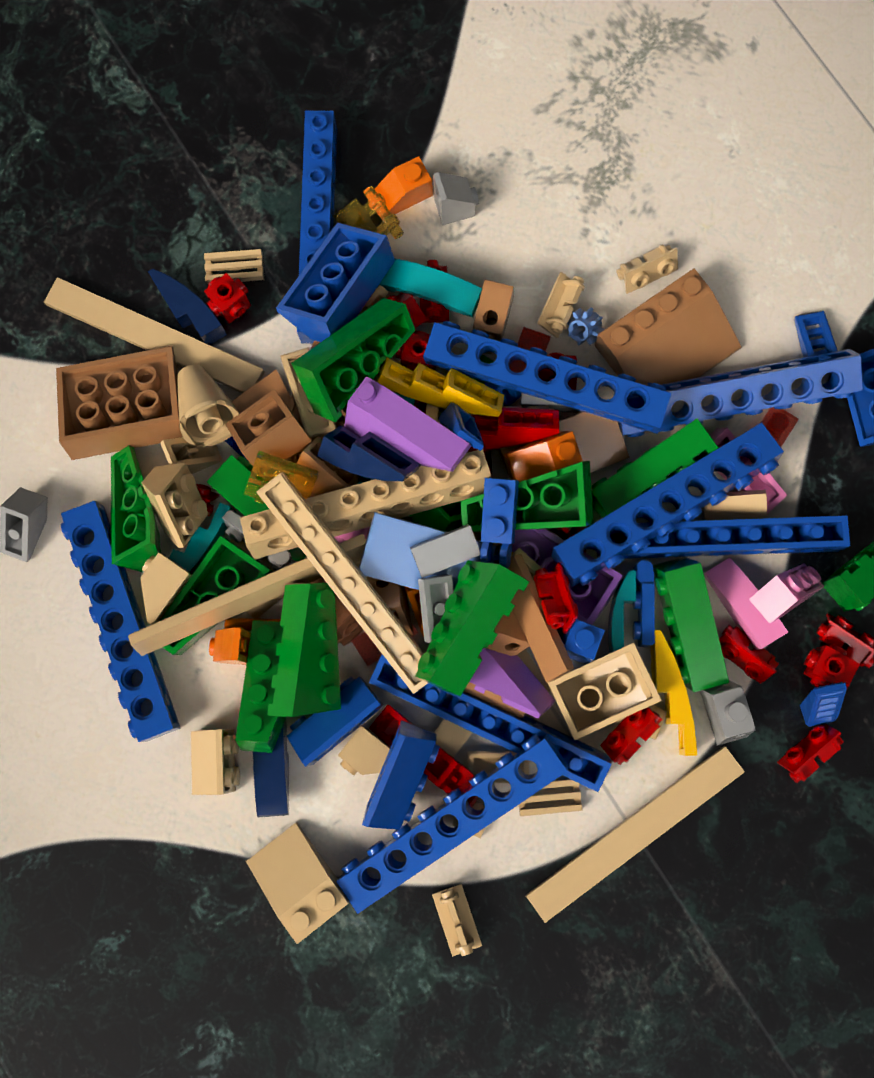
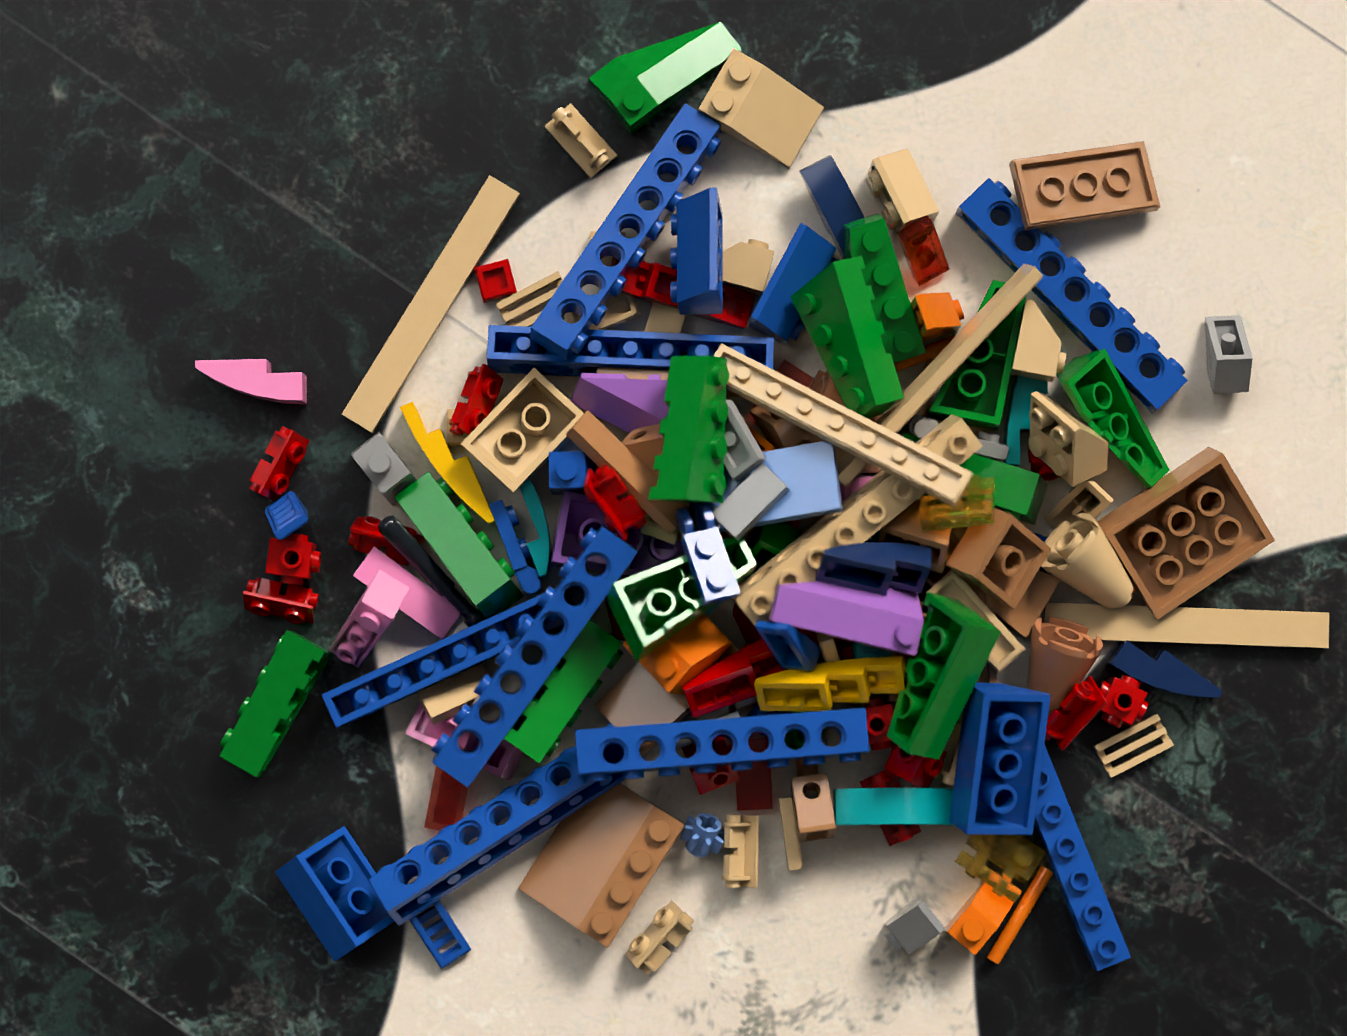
camera: 150 degrees right, 5 degrees up
(67, 704) = (1084, 185): none -> medium nougat tile
(218, 705) = (923, 250): none -> clear red plate
(257, 343) = (1060, 658): none -> nougat cone
(261, 300) = (1077, 711): none -> red hinge
(372, 949) = (654, 77): none -> green wedge
(373, 180) = (1020, 915): none -> orange bar
(517, 302) = (790, 833): none -> tan tile
(574, 830) = (495, 280): none -> red tile
(730, 627) = (414, 553): none -> black piece
(806, 829) = (255, 379): none -> bright pink slope

